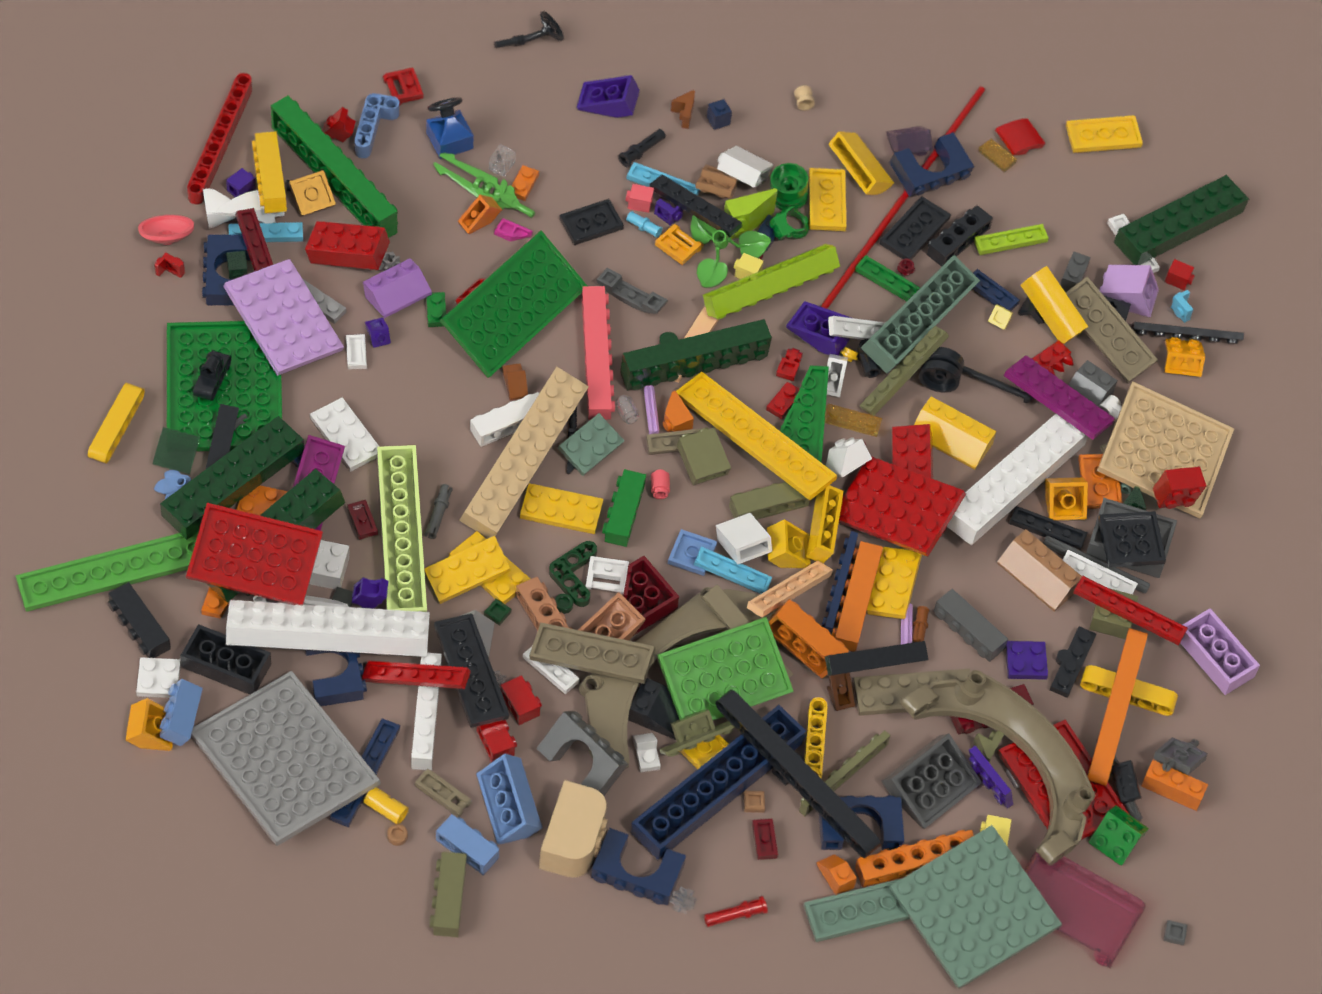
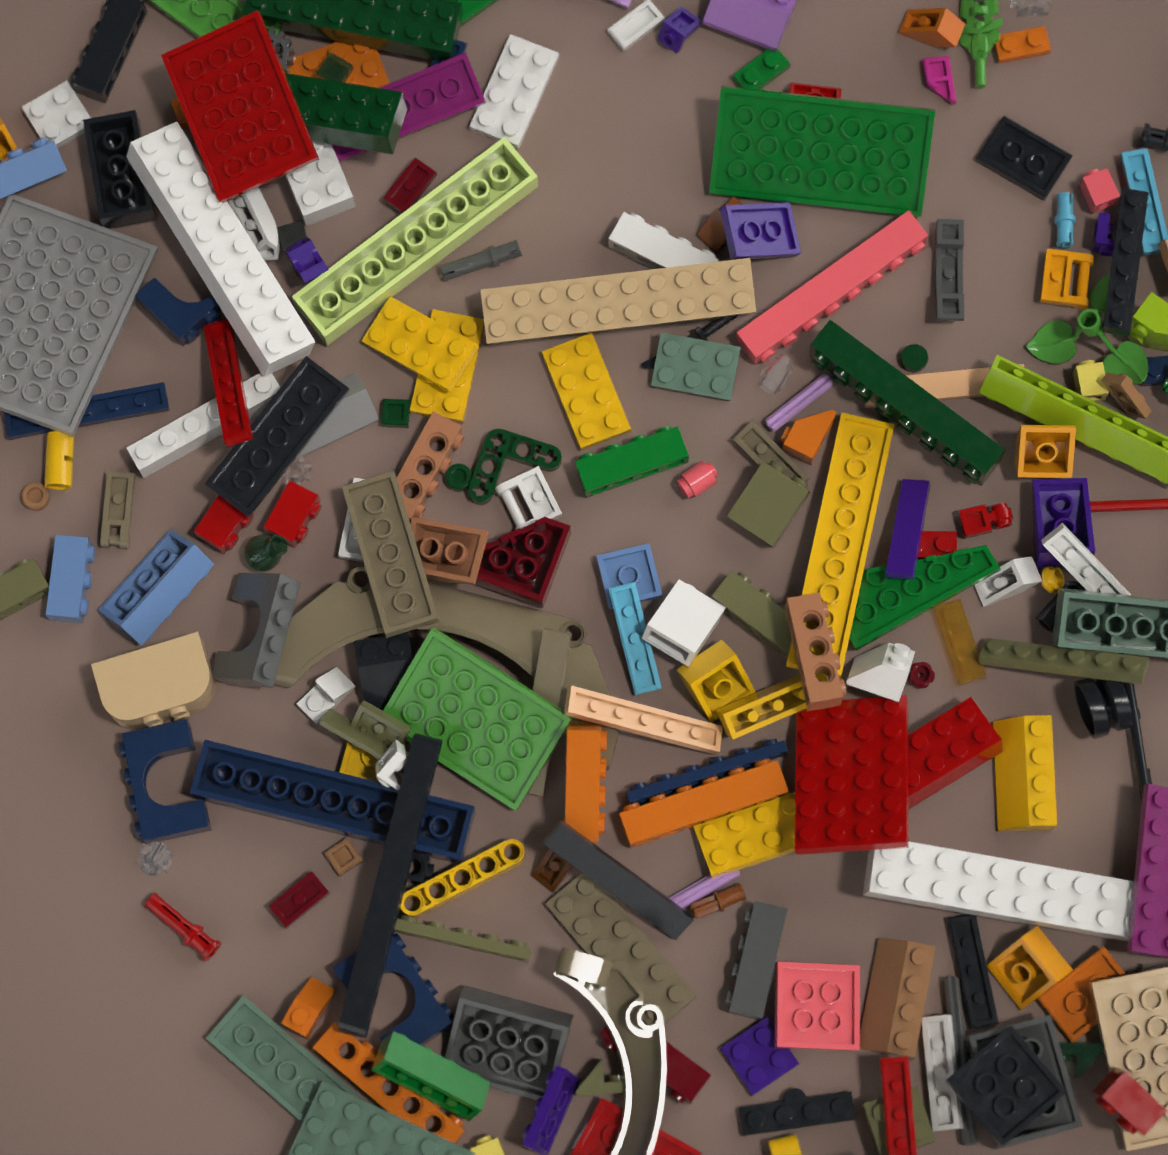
camera: 65 degrees right, 20 degrees up
(259, 506) = (335, 69): none -> clear green plate
(533, 727) = (264, 551): none -> clear green piece
(537, 361) = (760, 231): none -> dark purple plate
(723, 727) = (390, 762): none -> white bracket
(770, 399) = (908, 529): none -> dark purple tile
(771, 253) = (1126, 395): none -> medium nougat plate
(776, 307) = (1045, 451): none -> light orange slope
(815, 475) = (816, 693): none -> nougat brick
(927, 824) = (431, 1076): none -> green brick
(1018, 610) = (817, 1006): none -> coral plate

